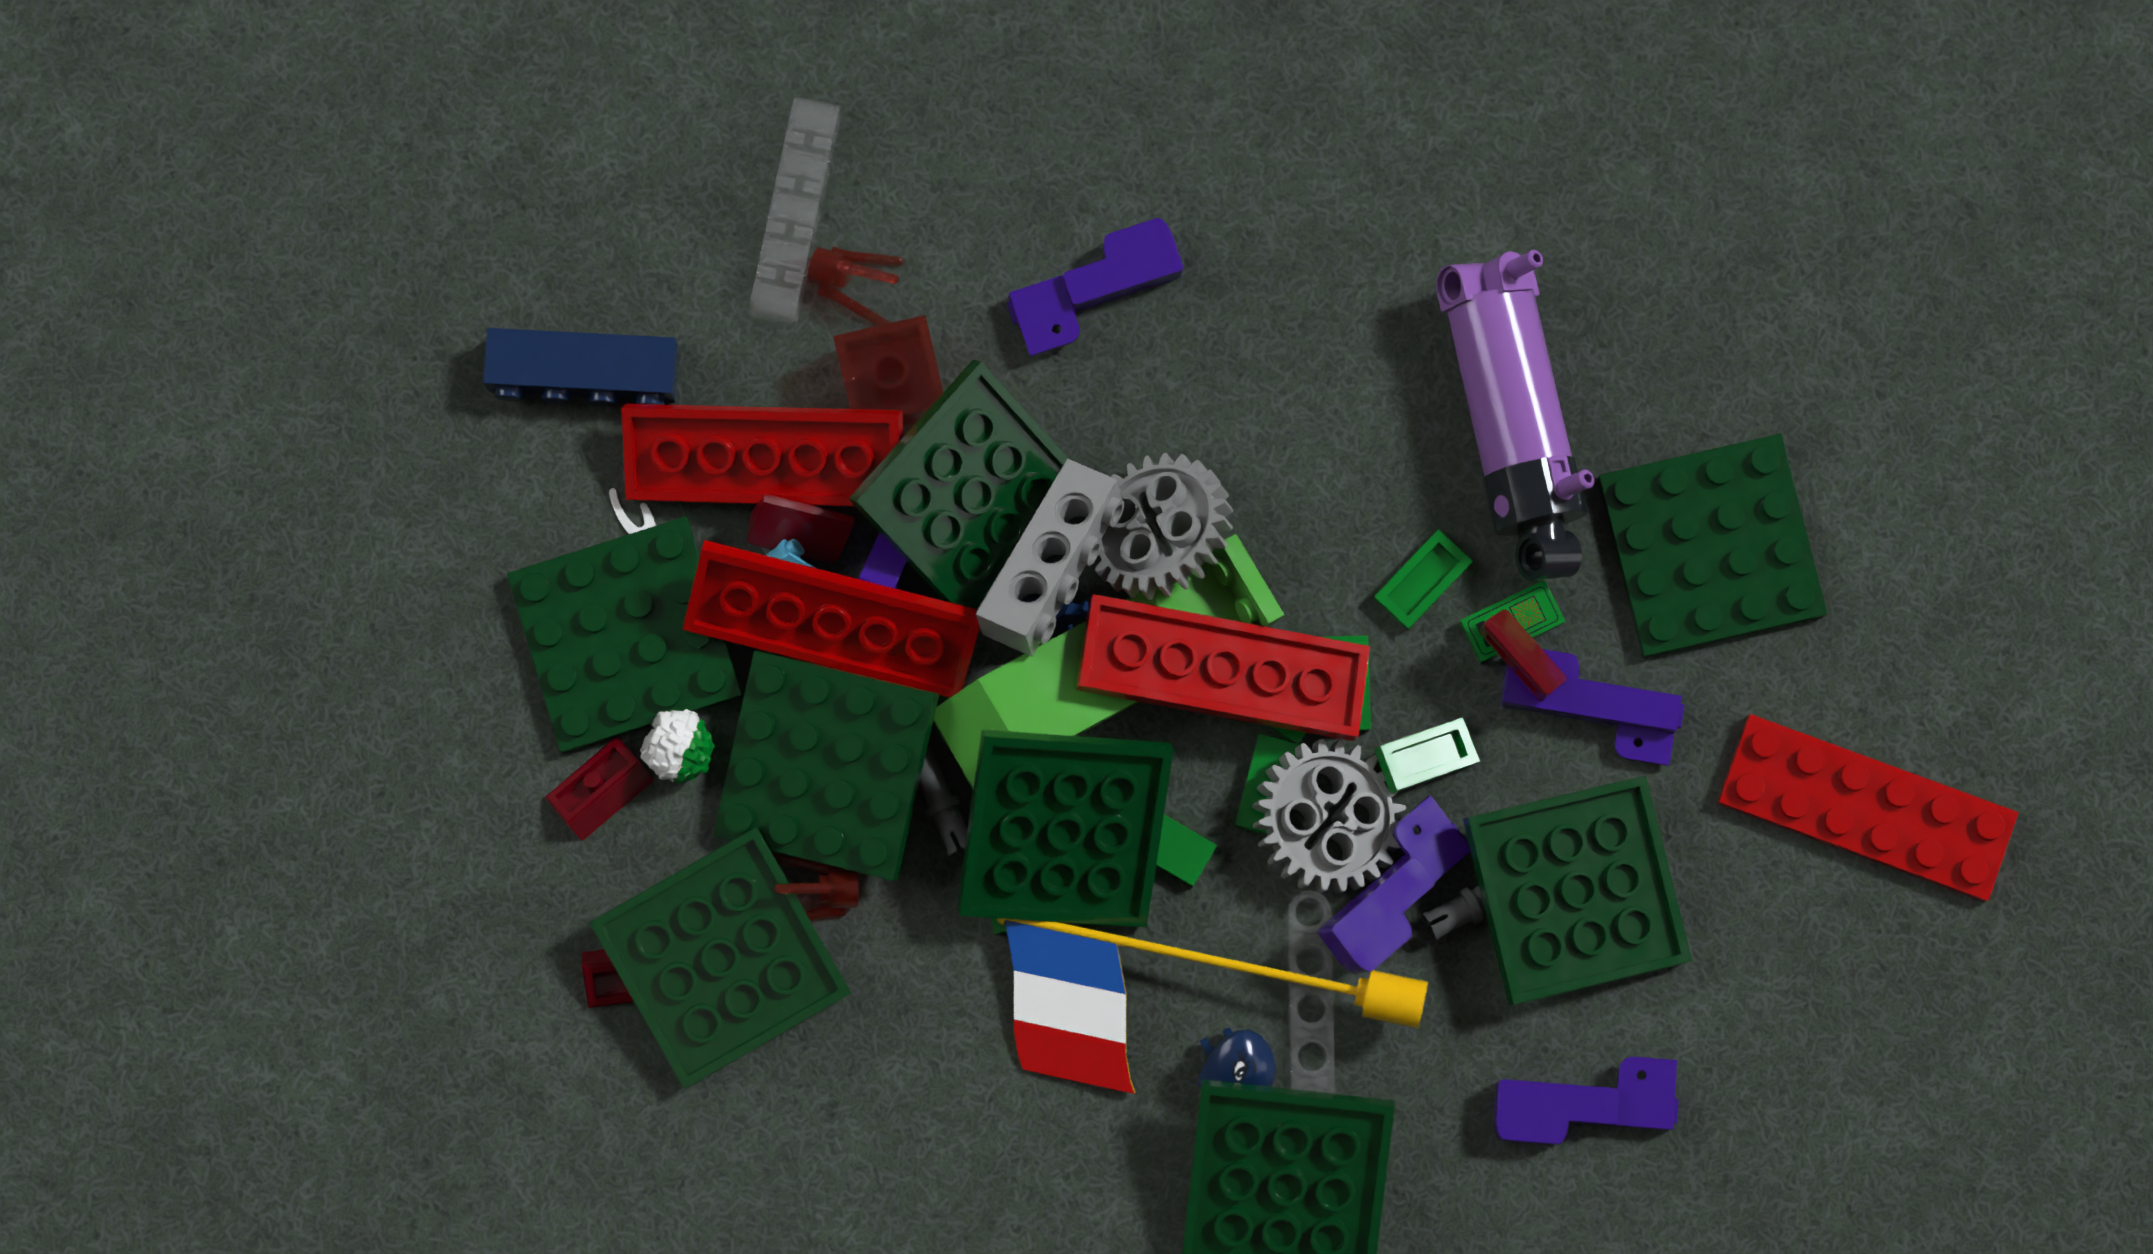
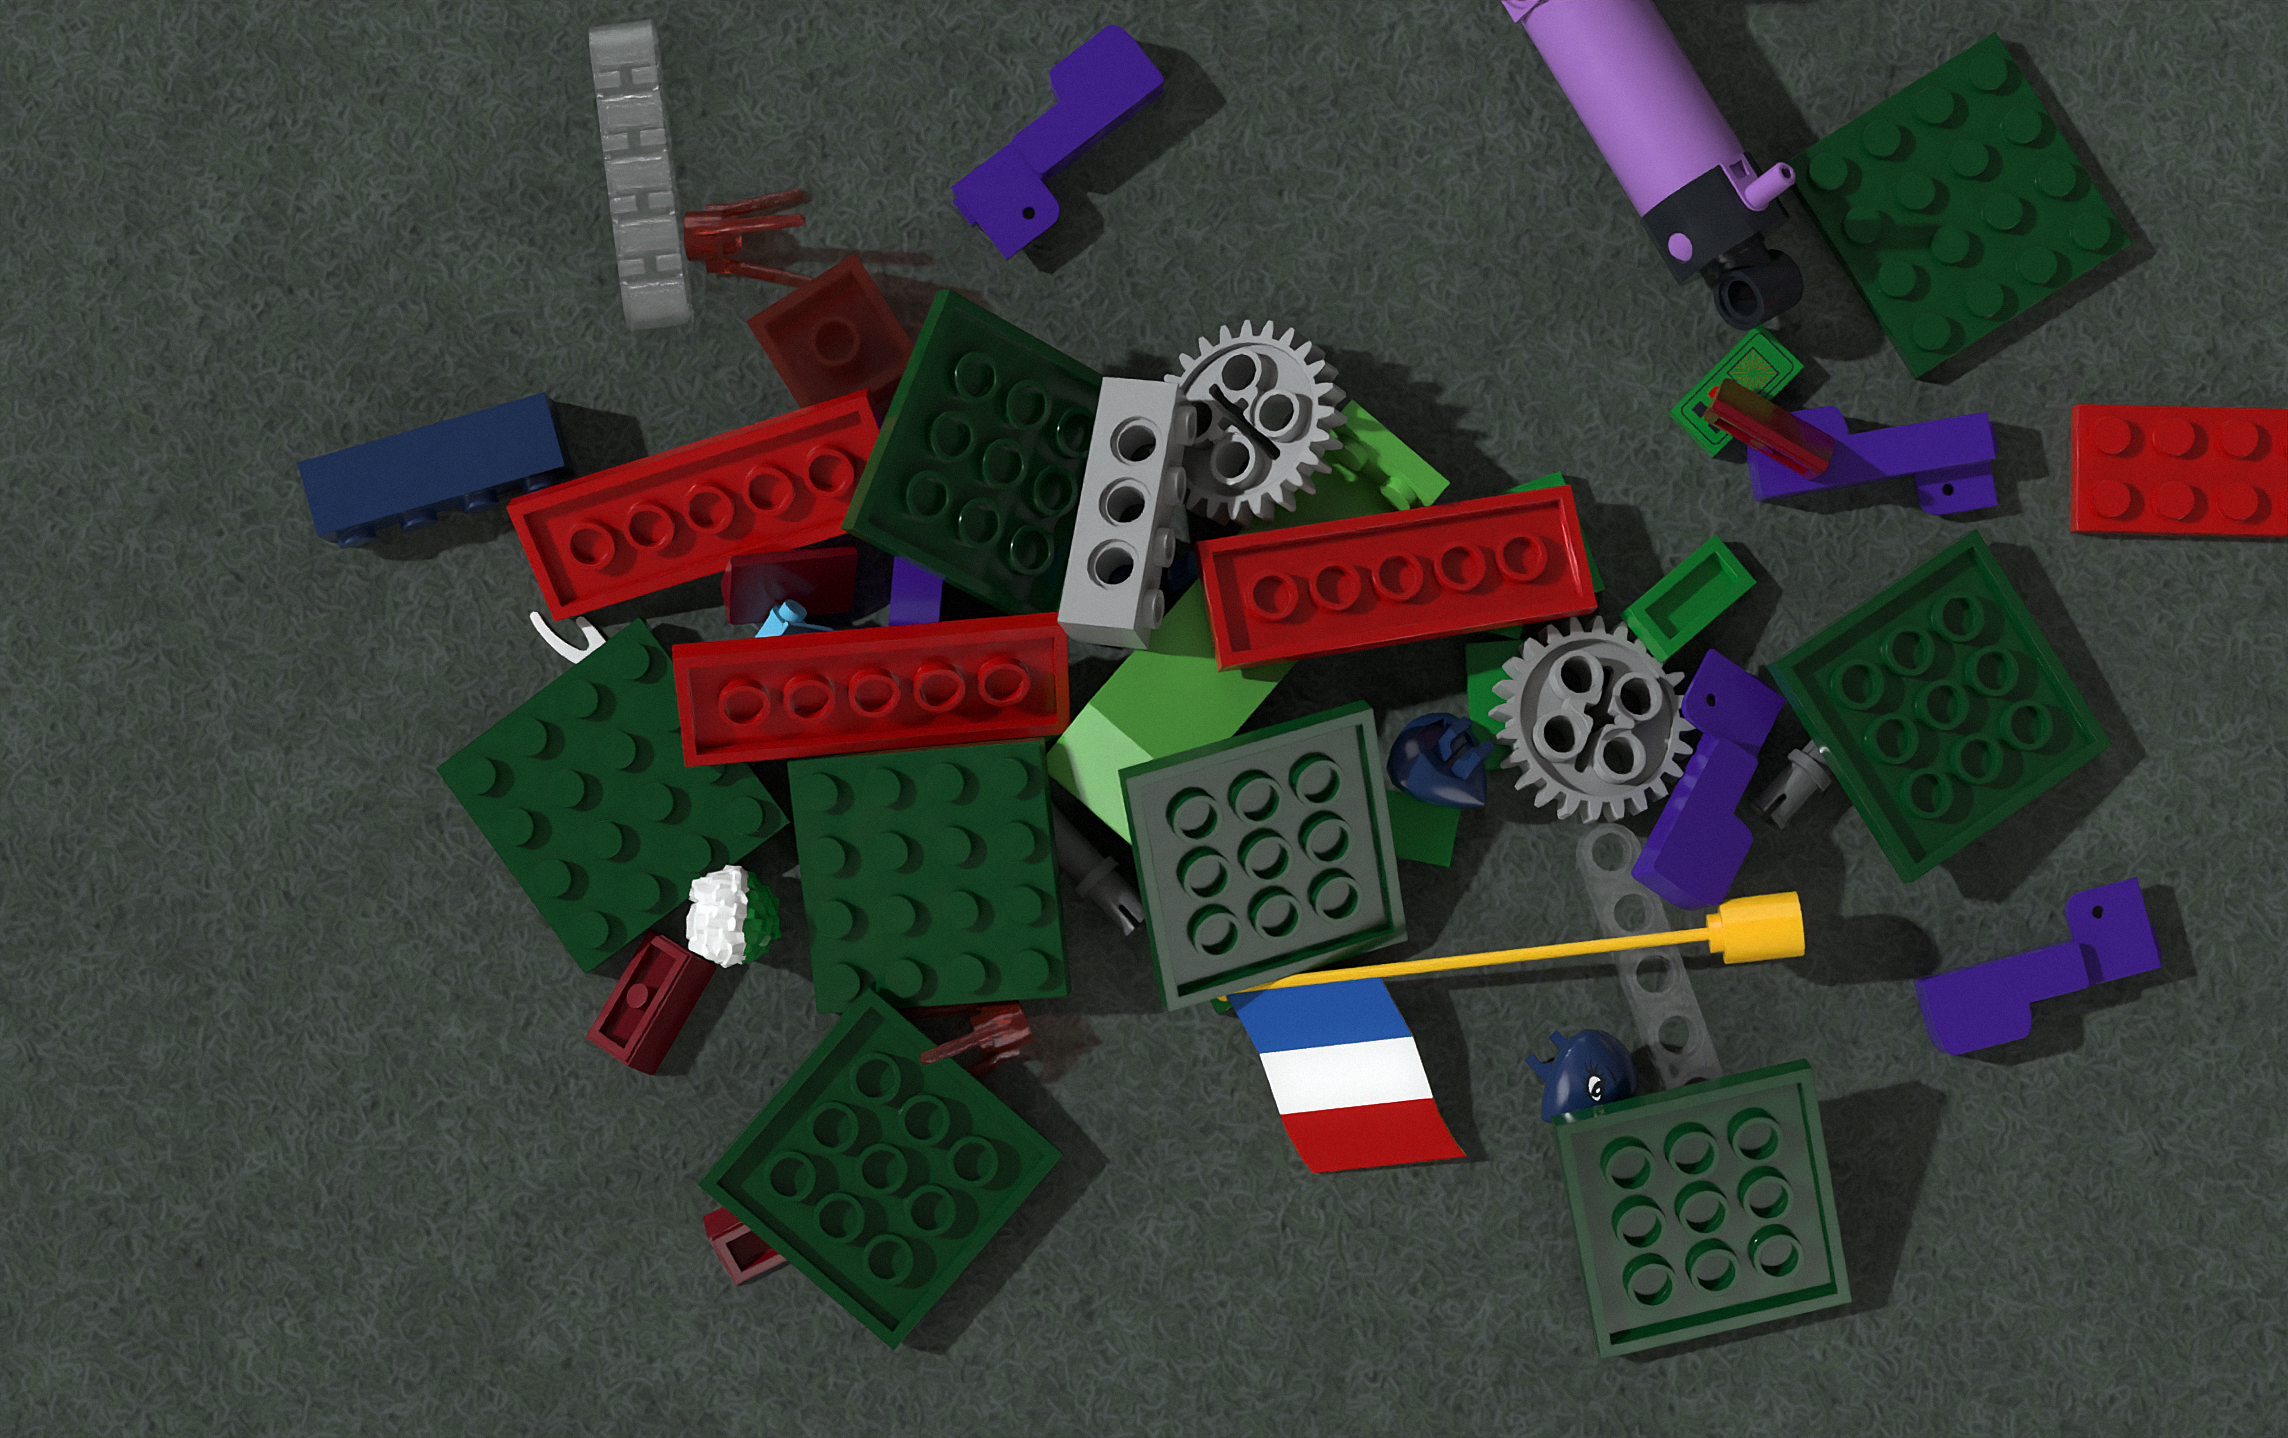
camera: 15 degrees left, 5 degrees up
(1211, 808) = (1440, 761): none -> dark blue piece
(1422, 580) = (1604, 375): green tile -> none

